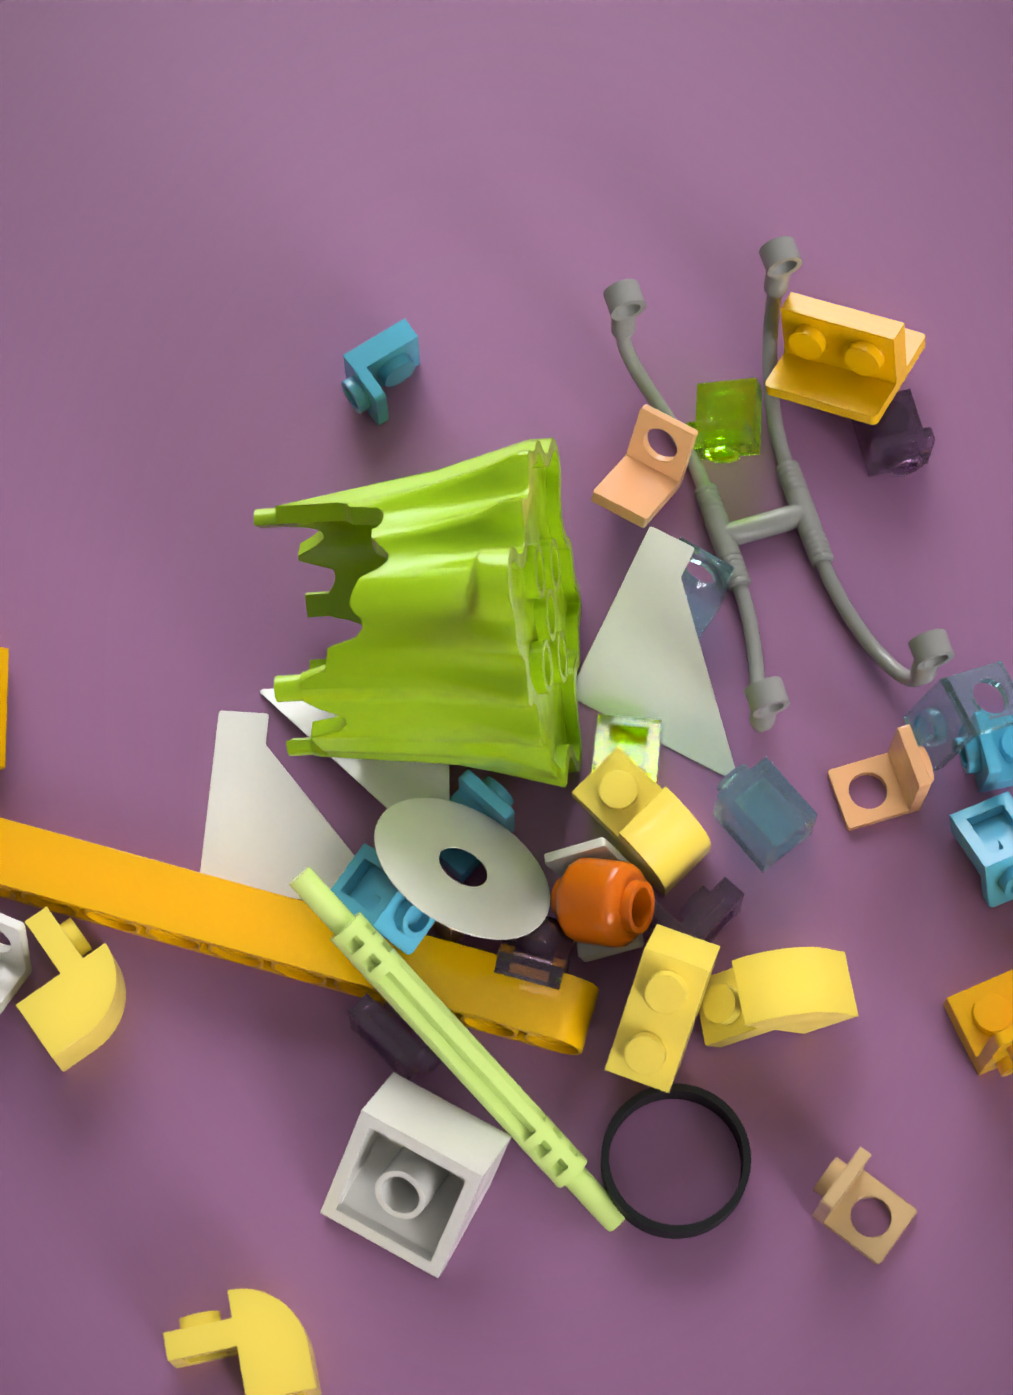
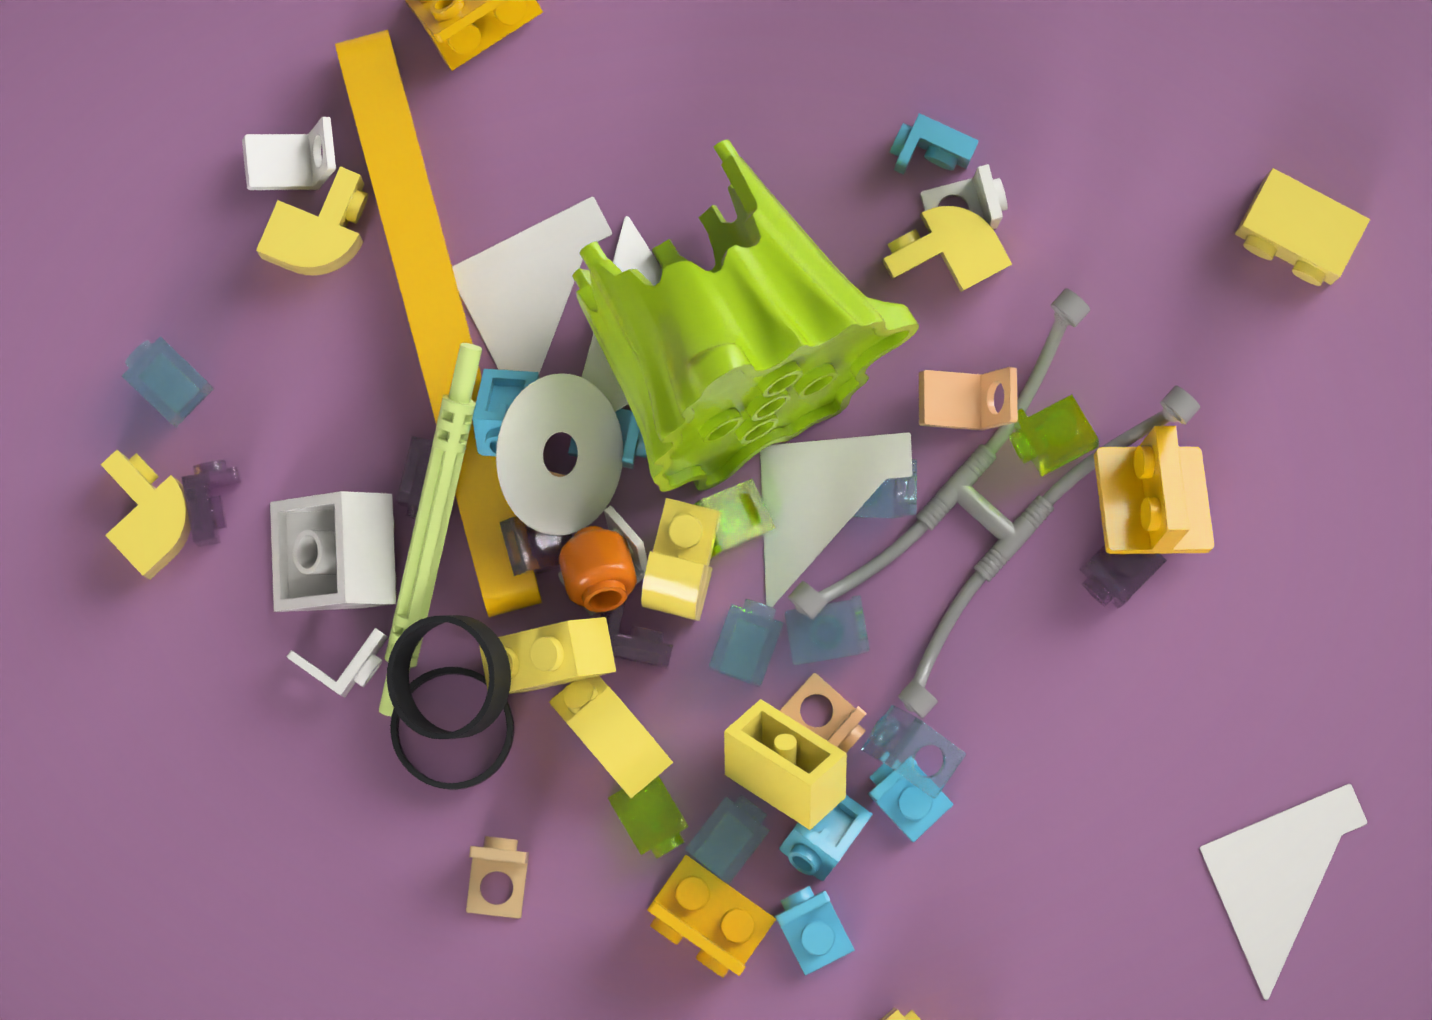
camera: 50 degrees right, 15 degrees up
(123, 1241) = (166, 380): none -> clear light blue brick
(289, 1281) = (204, 511): none -> clear purple bracket
(459, 355) = (981, 193): none -> white bracket
(490, 393) = (961, 238): none -> light yellow brick
(557, 1219) = (358, 671): none -> white bracket
(579, 1167) = (399, 685): none -> black tyre
(665, 106) = (1301, 228): none -> light yellow brick
(803, 727) = (832, 634): none -> clear light blue bracket
(890, 1013) = (650, 818): none -> clear neon green bracket
(914, 834) = (785, 764): none -> light yellow brick
(954, 943) = (729, 837): none -> clear light blue brick

